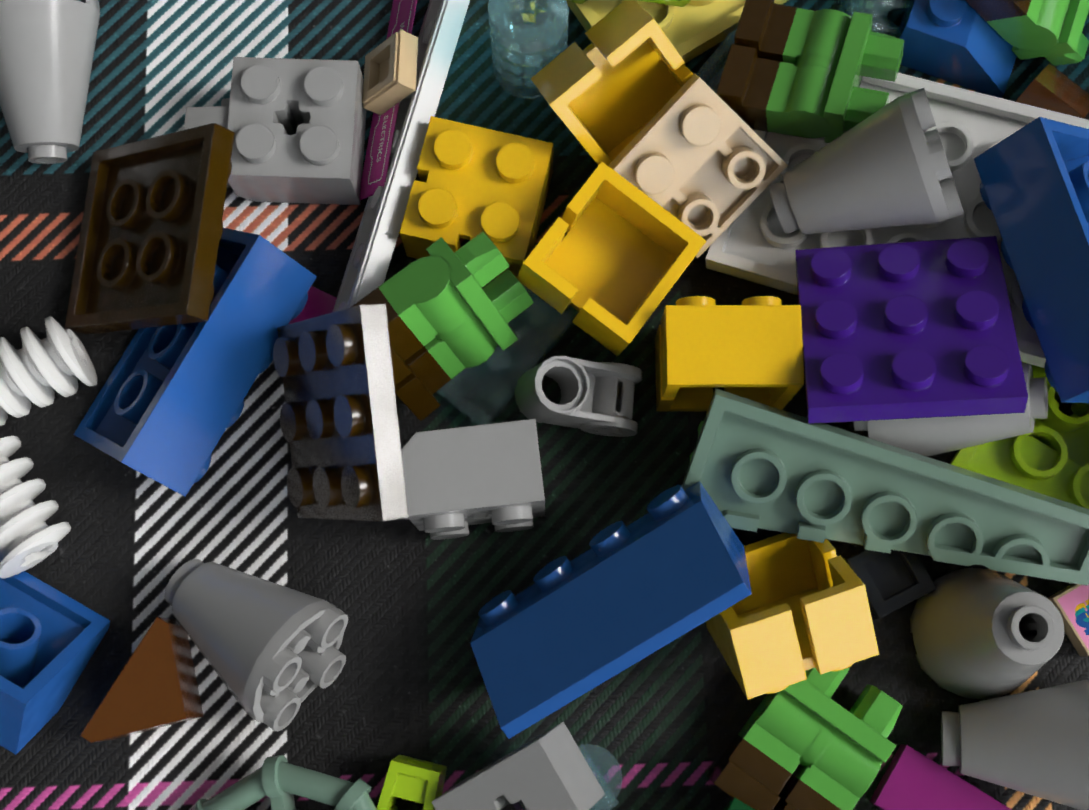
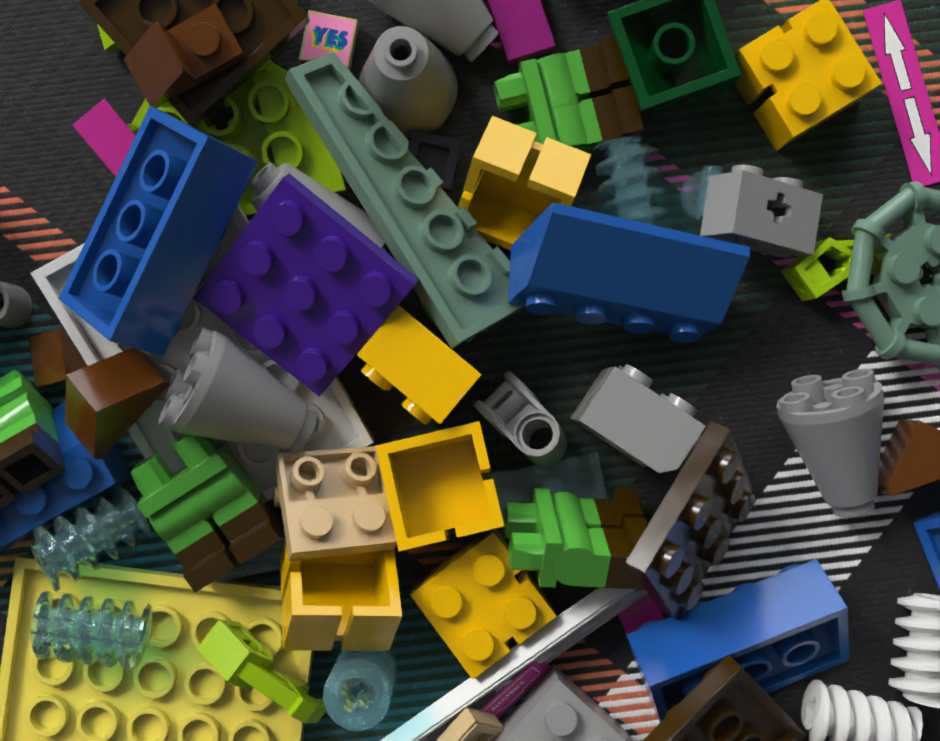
camera: 140 degrees left, 10 degrees up
(673, 714) = (628, 179): none -> clear light blue piece
(982, 89) = (110, 398): none -> reddish brown slope

